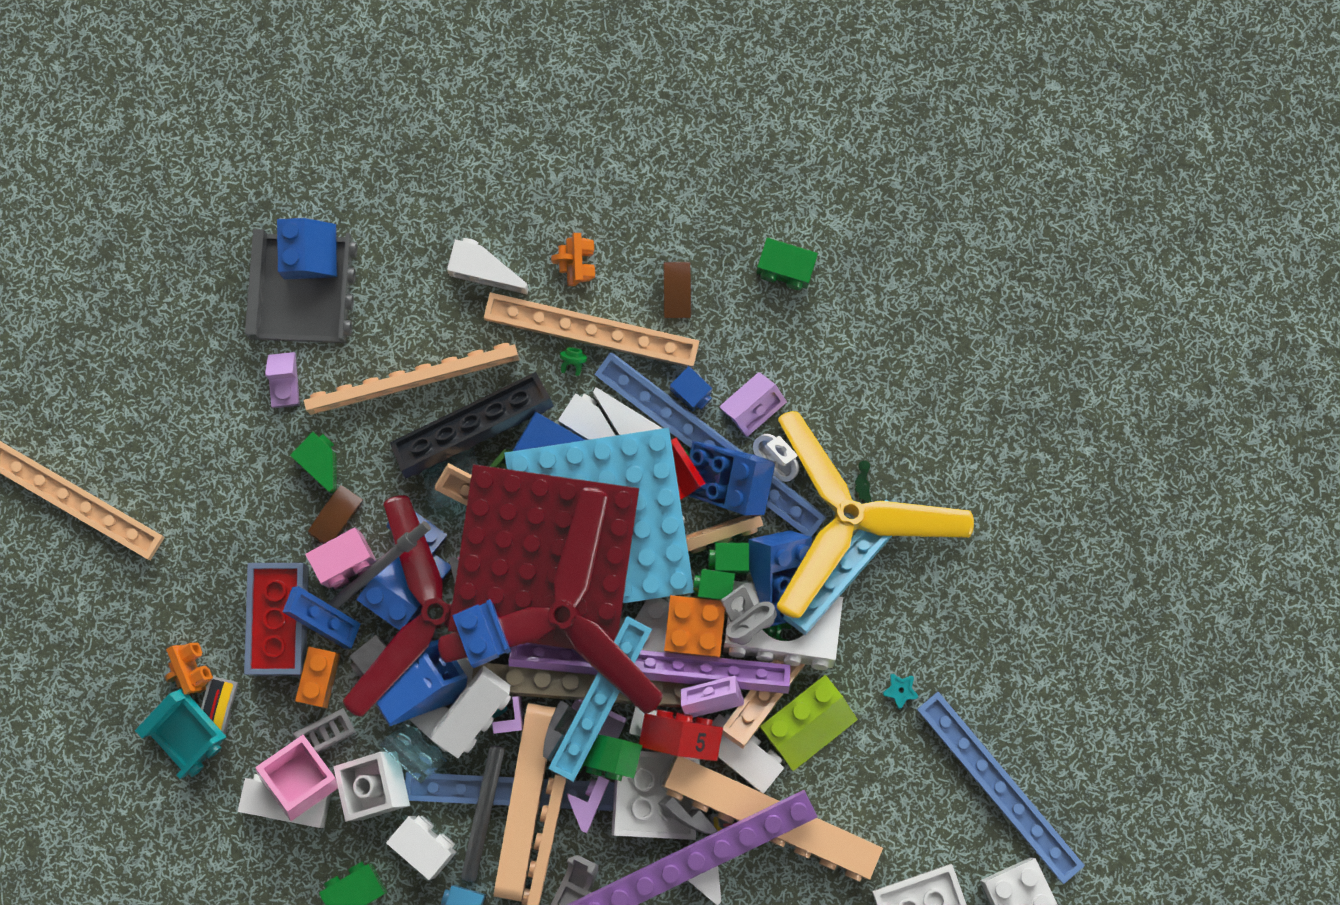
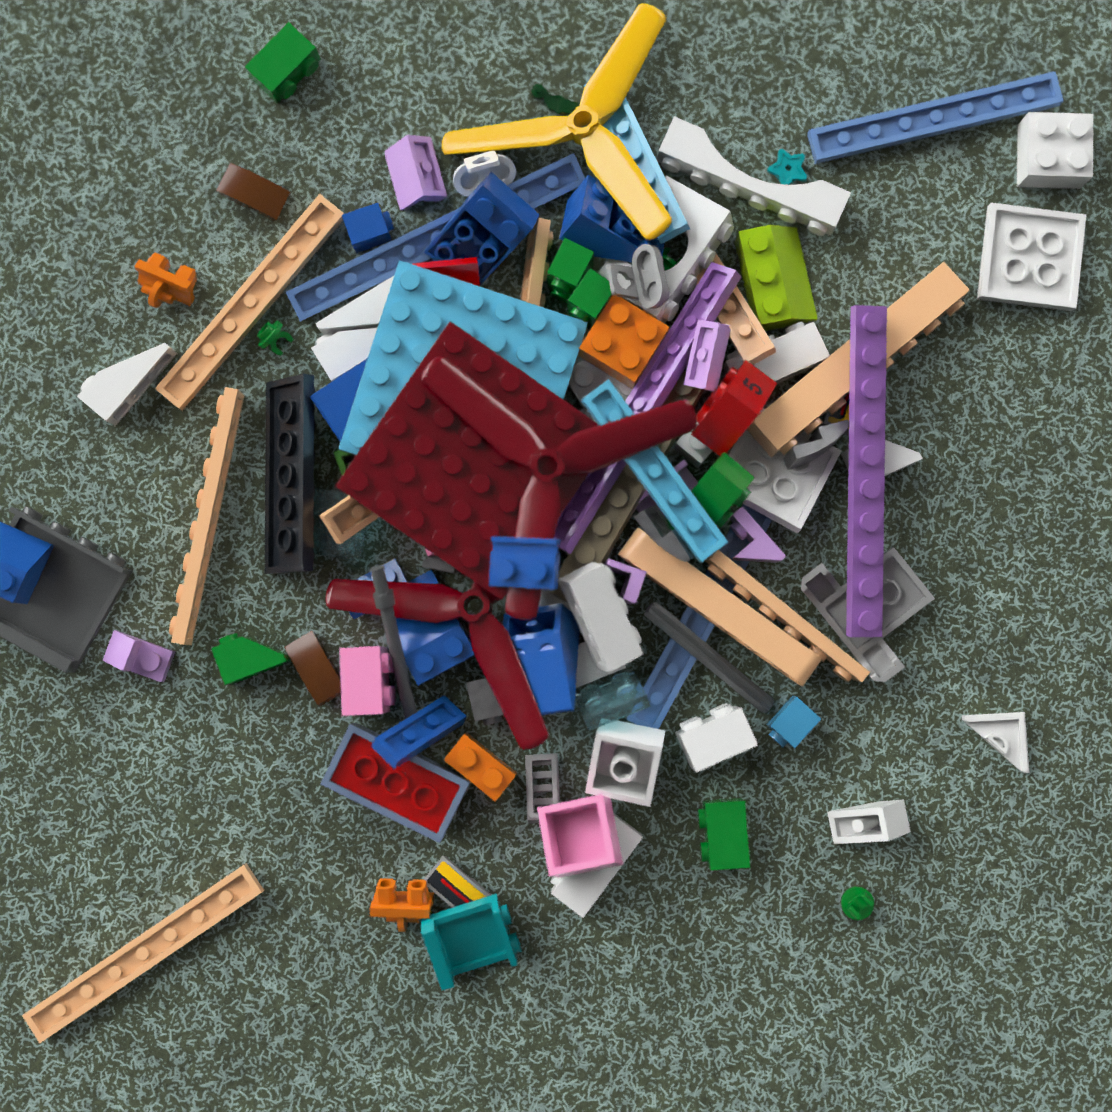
camera: 60 degrees left, 5 degrees up
(880, 723) = (812, 204): none -> white arch

